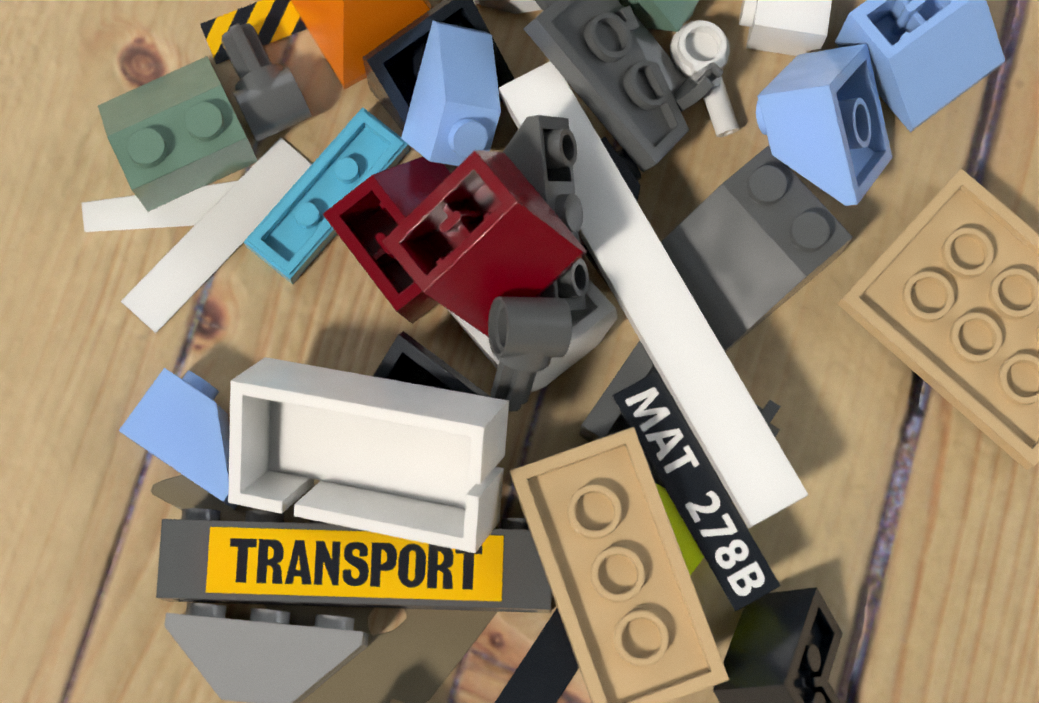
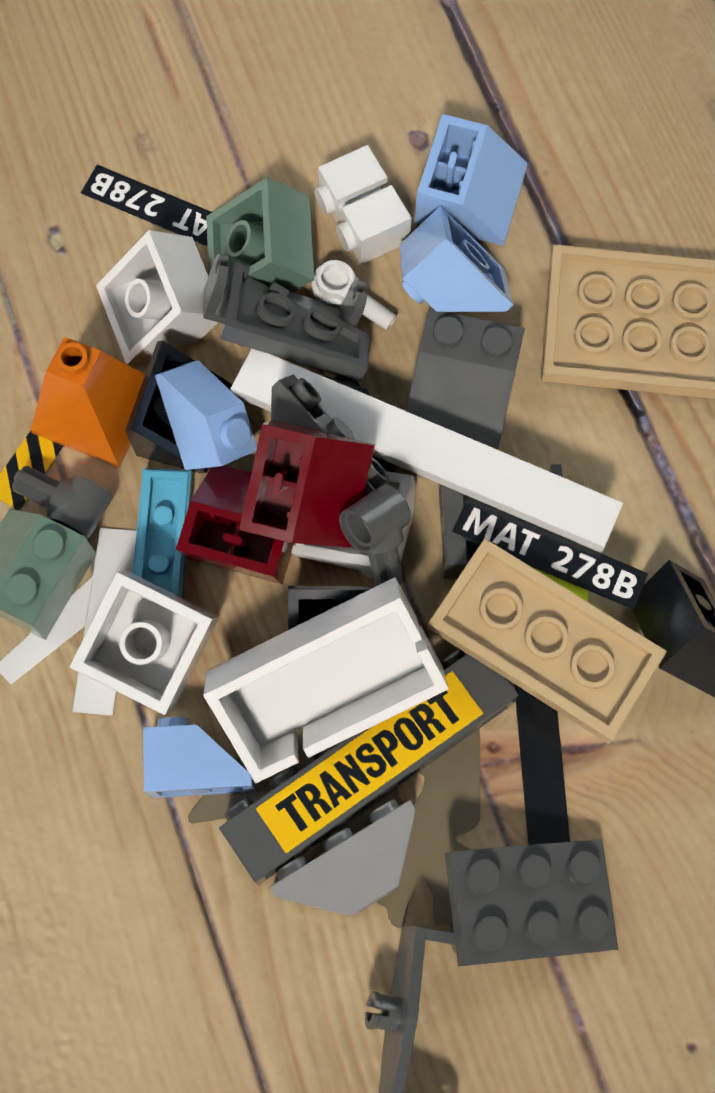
camera: 35 degrees left, 5 degrees down
(228, 284) = (144, 642): none -> white brick

